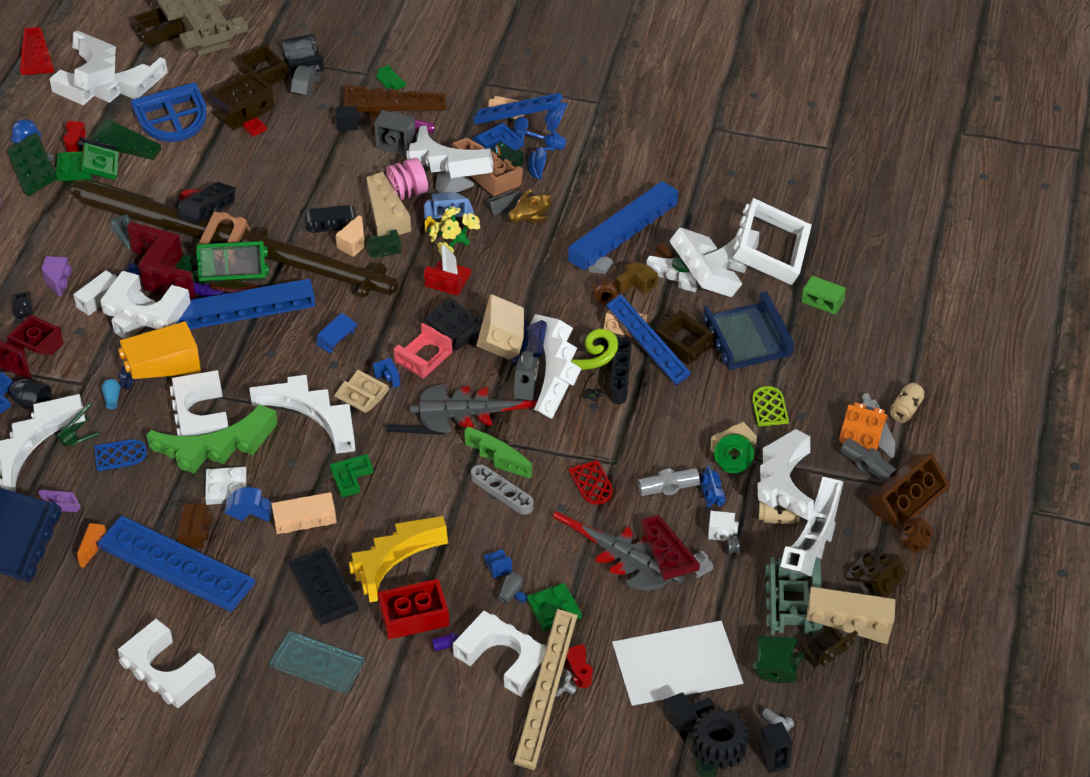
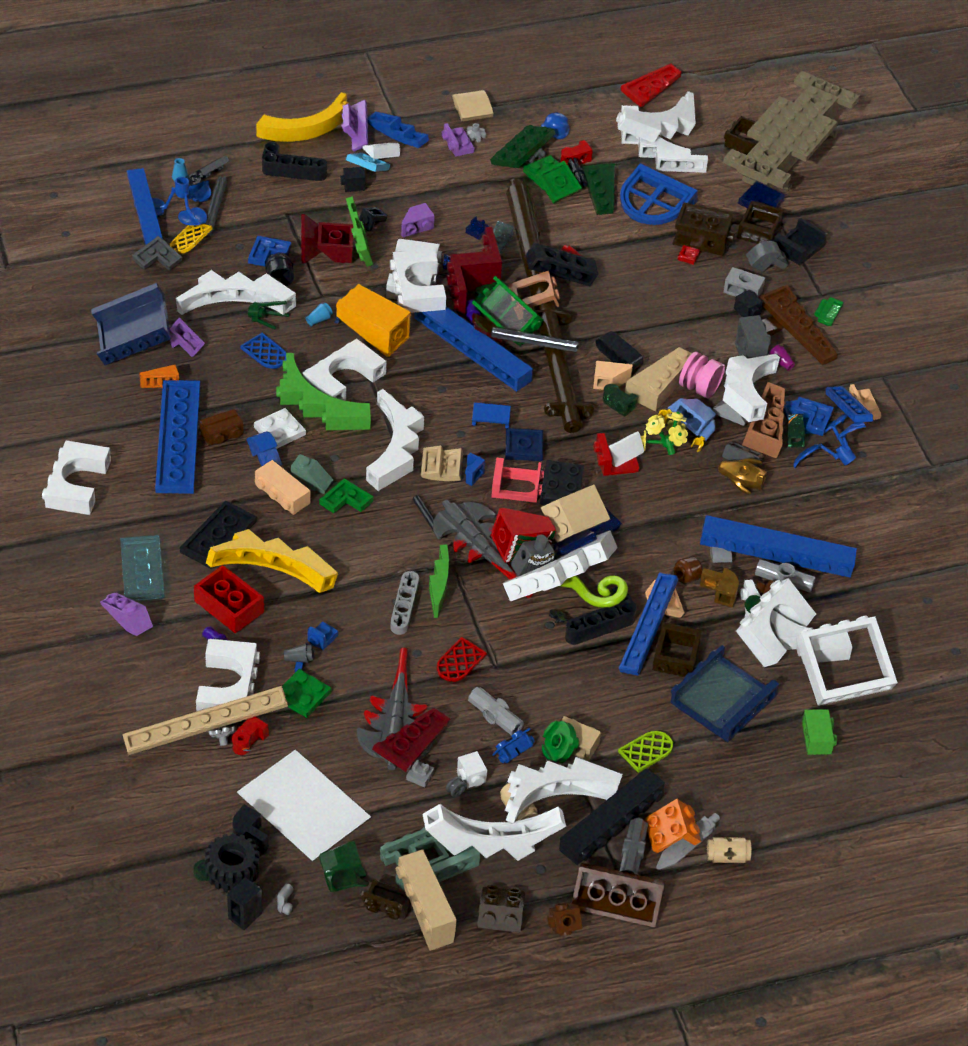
camera: 55 degrees right, 0 degrees up
(53, 314) = (359, 234): none -> bright green wing
(101, 241) = (476, 228): none -> clear blue tile
(227, 52) = (761, 193): none -> clear blue plate
(280, 260) = (534, 339): none -> black axle
(304, 485) = (311, 474): none -> sand green slope
(321, 109) = (741, 281): none -> light grey brick
(369, 695) = (128, 613): none -> medium lavender slope
(382, 329) = (524, 444): none -> dark blue tile
(496, 372) = (516, 527): none -> red slope
(653, 237) = (784, 571): none -> light grey piece
(828, 454) = (611, 816): none -> black brick

